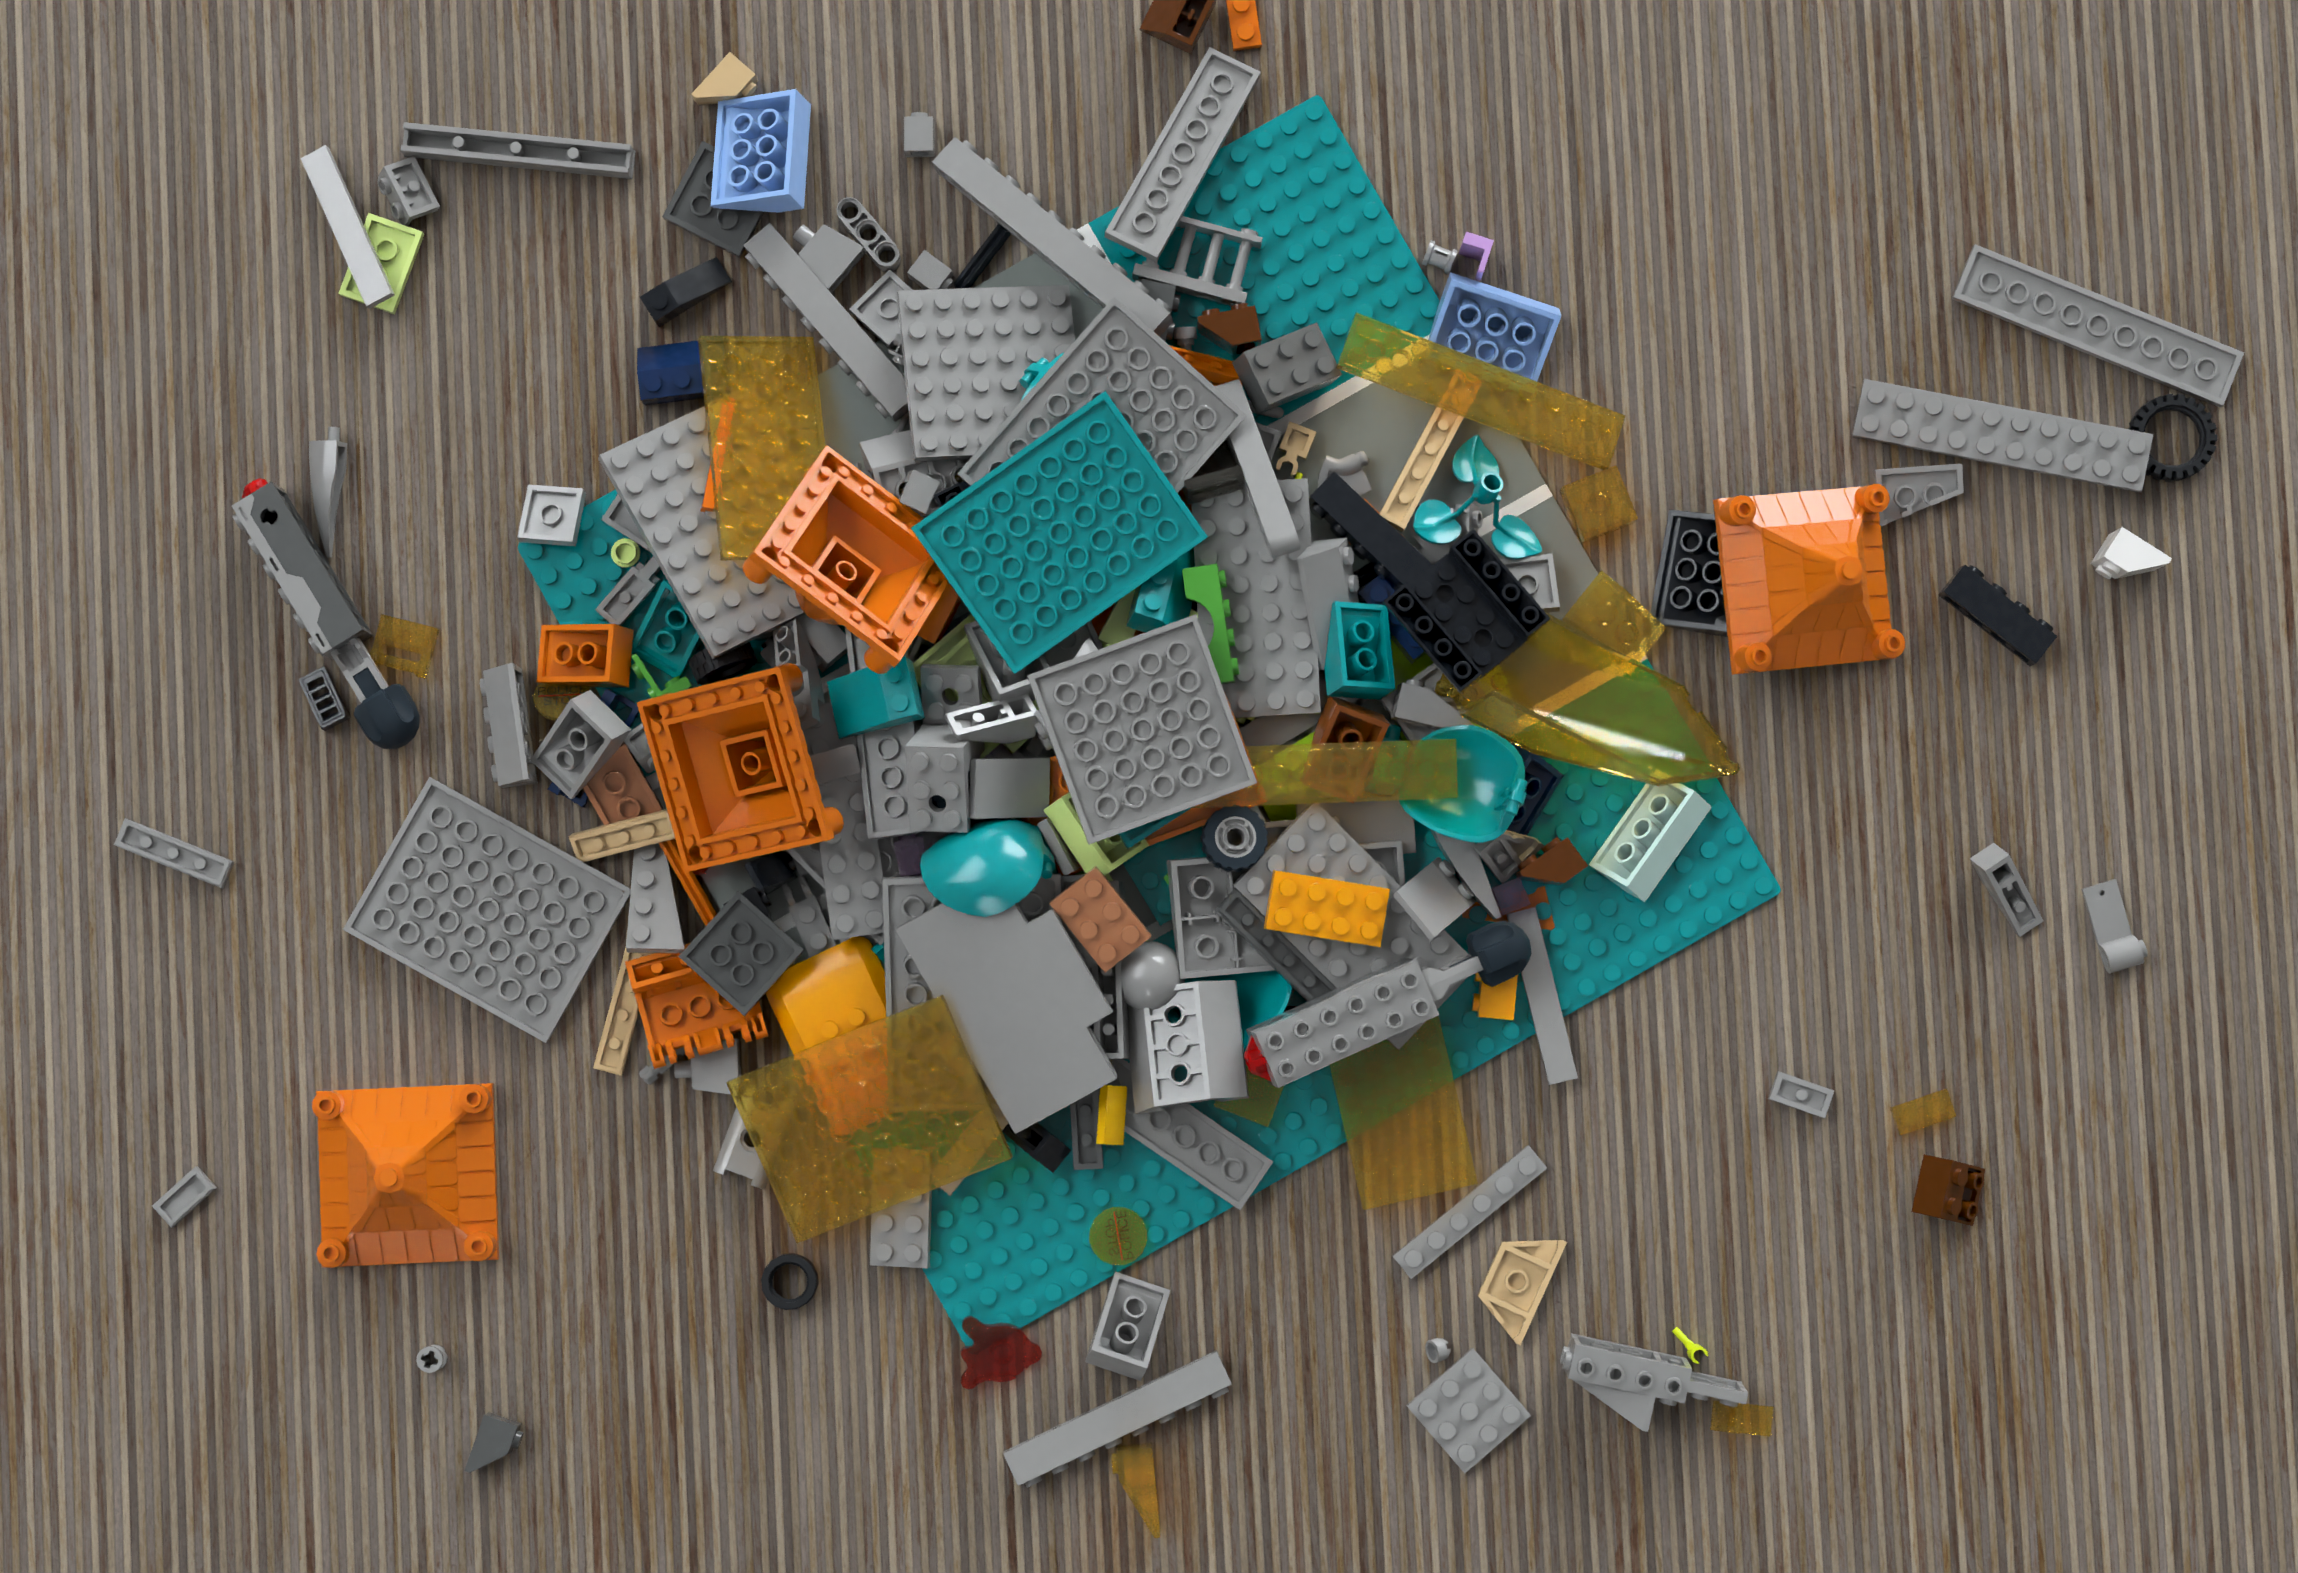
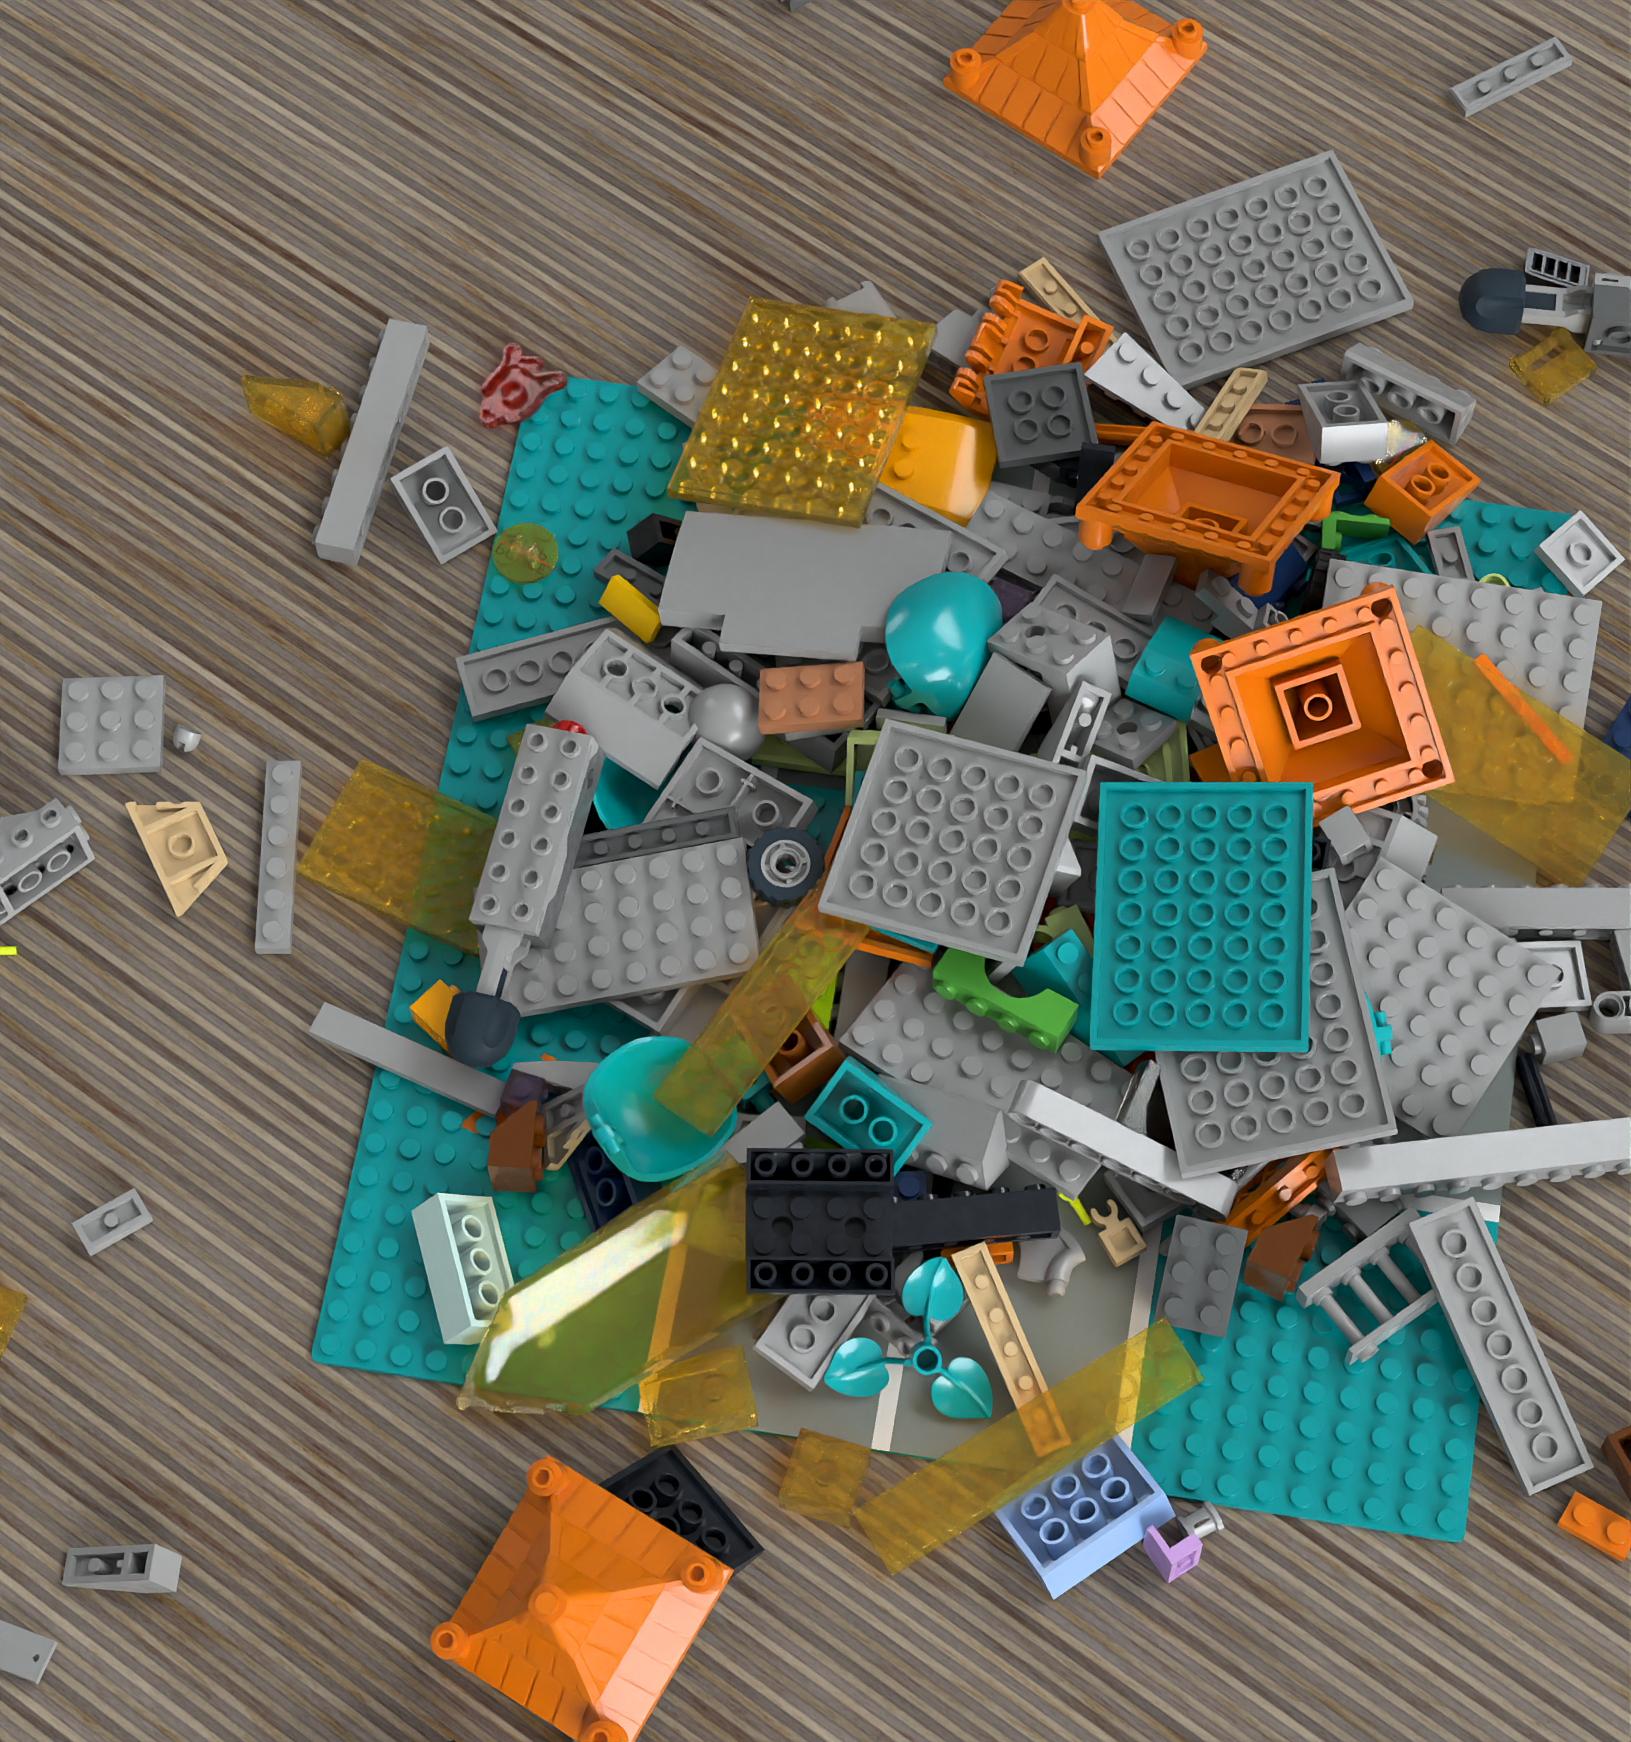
camera: 130 degrees right, 20 degrees down
(767, 1281) = (721, 256): black tyre -> none
(1326, 908) = (652, 903): light orange plate -> none
(1435, 897) = (579, 1010): light grey slope -> none

